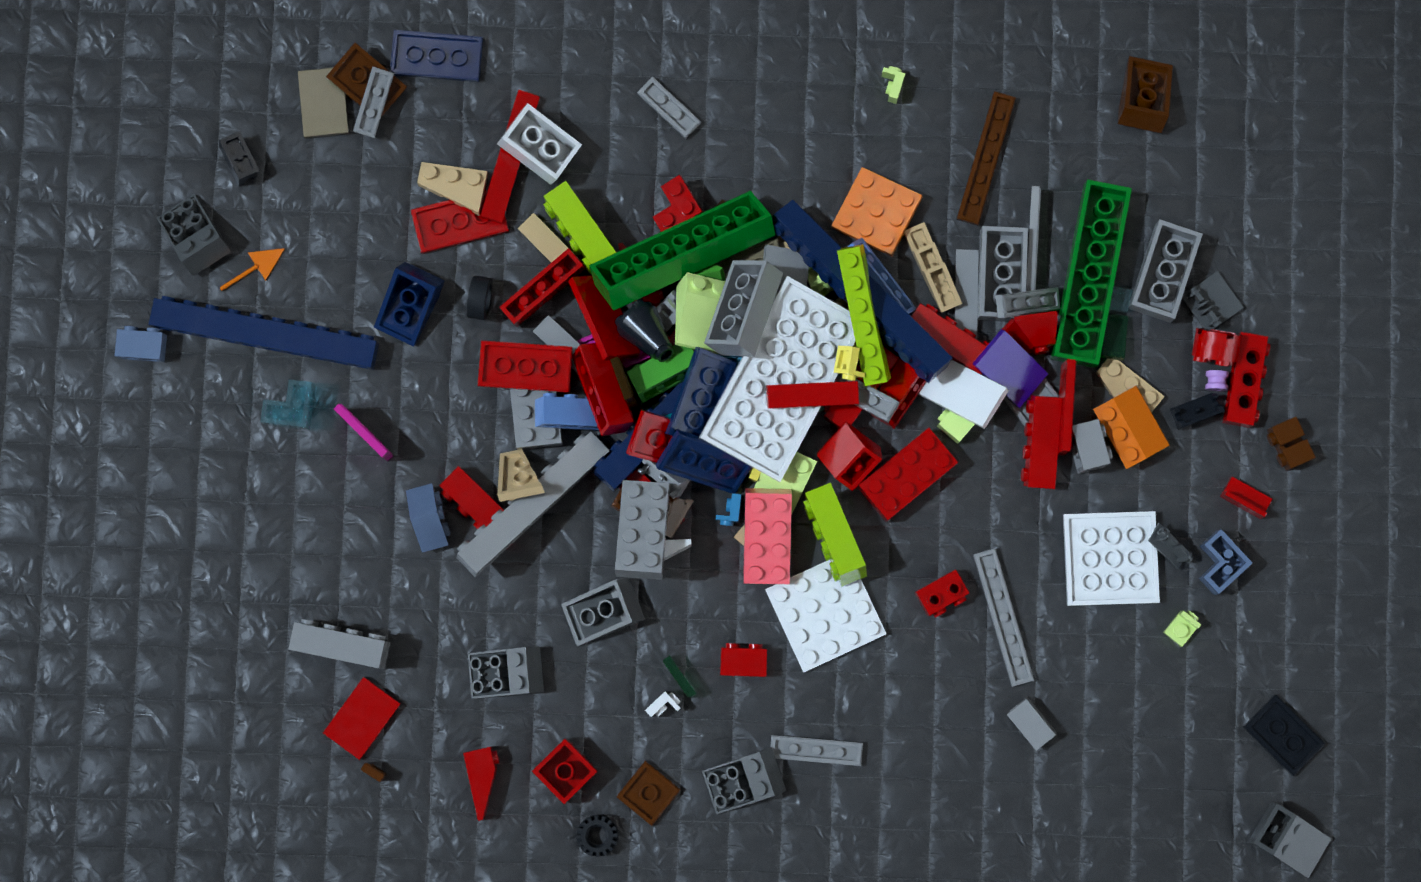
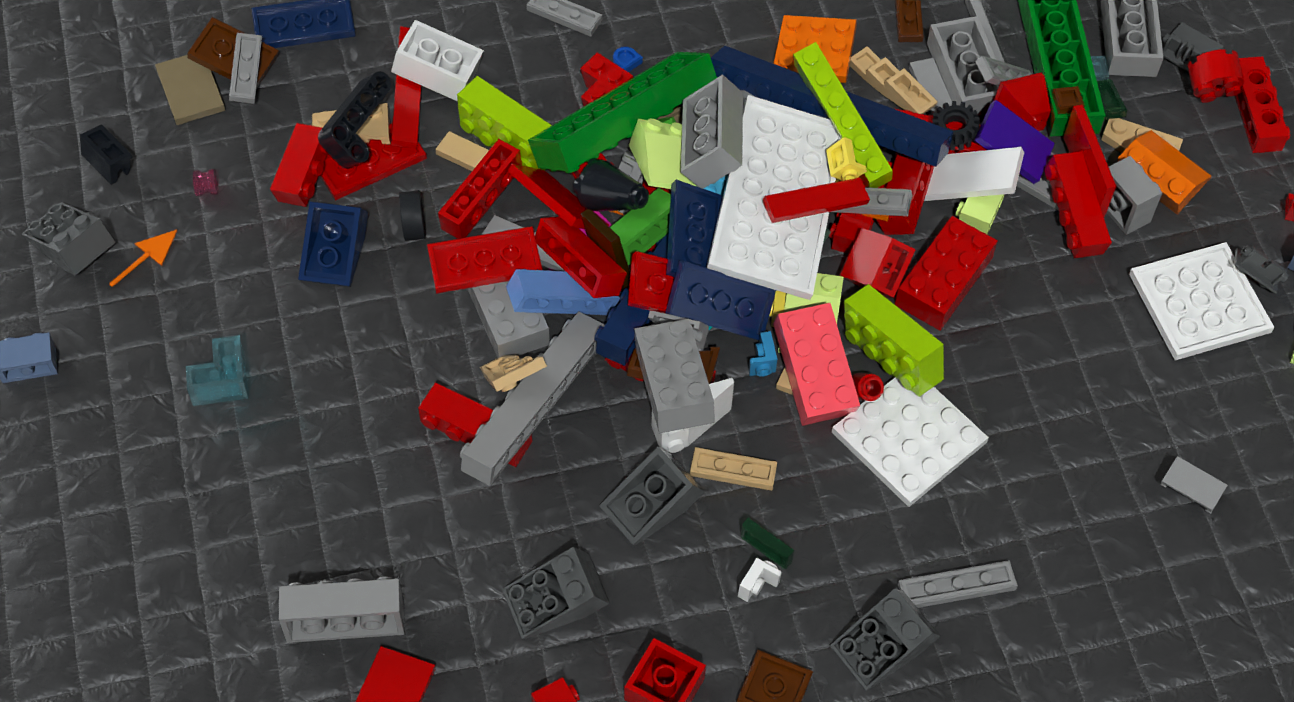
camera: 20 degrees left, 25 degrees down
(264, 333) = (171, 311): dark blue brick -> none
(316, 211) = (205, 182): none -> clear pink wheel
(363, 432) = (313, 375): dark pink tile -> none
(399, 219) = (299, 167): none -> red brick
(427, 517) = (413, 444): sand blue brick -> none
(479, 163) = (350, 118): none -> black beam
(675, 602) = (733, 468): none -> tan tile
(708, 175) = (627, 58): none -> blue tile
(743, 661) = (836, 507): red brick -> none
(802, 564) = (868, 386): none -> red brick
(942, 593) = (1033, 379): red brick -> none
(969, 331) = (960, 114): none -> black tyre
(1003, 617) = (1111, 391): light grey tile -> none
(1071, 342) = (1066, 98): none -> reddish brown tile
(1196, 410) = (1223, 145): black hinge -> none
(1217, 380) = (1229, 111): lavender wheel -> none

